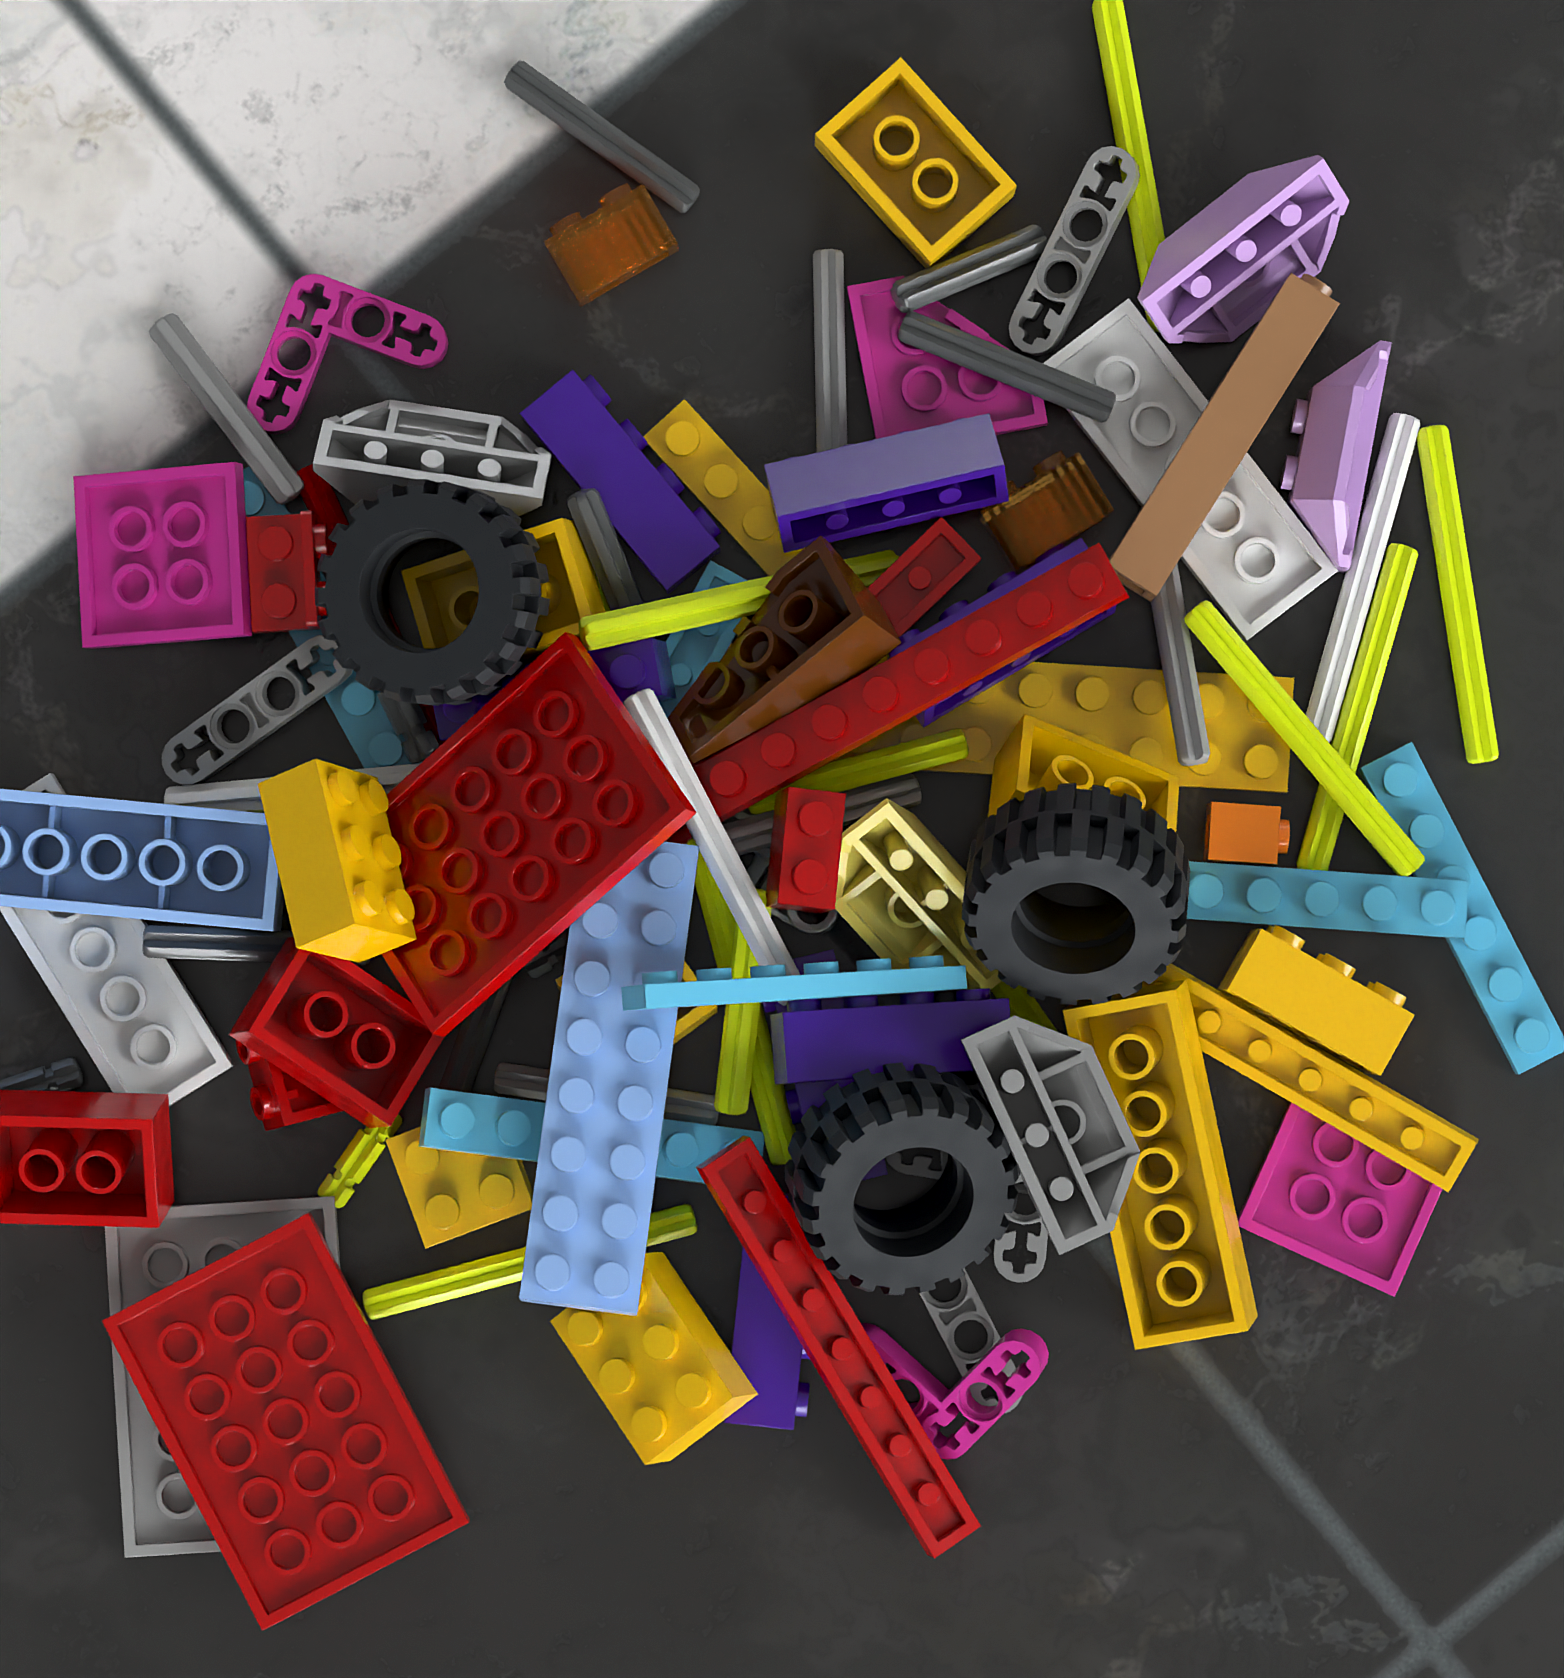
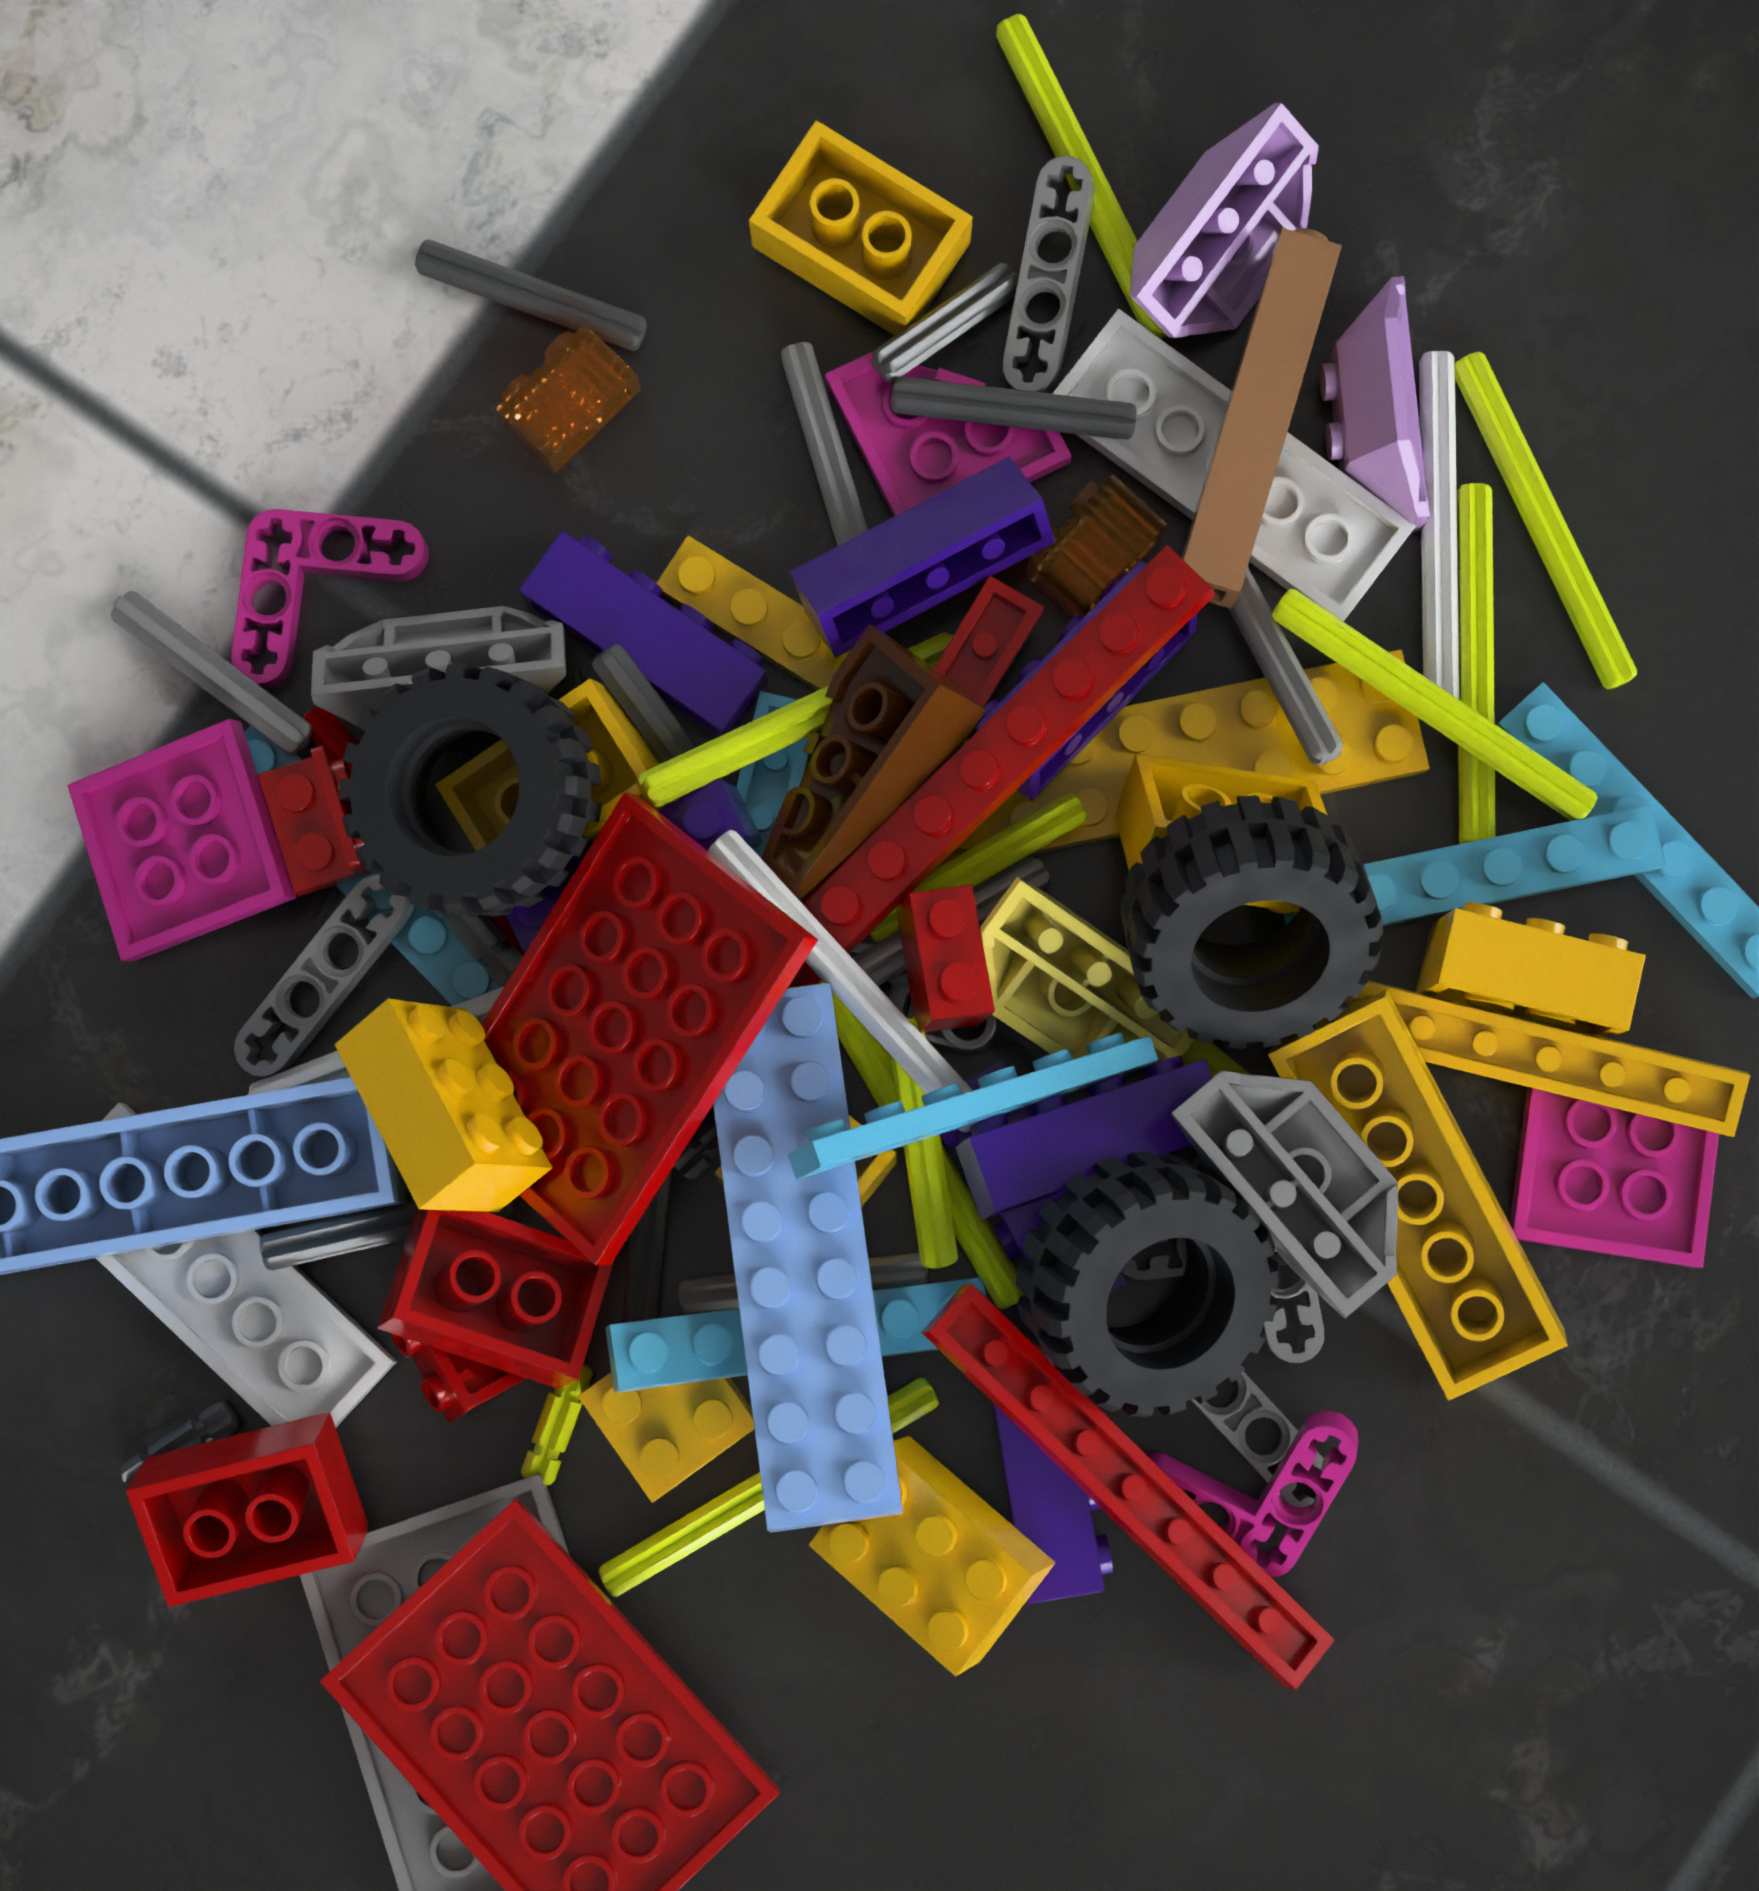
camera: 15 degrees left, 5 degrees down
(1245, 833) = (1398, 822): orange brick -> none

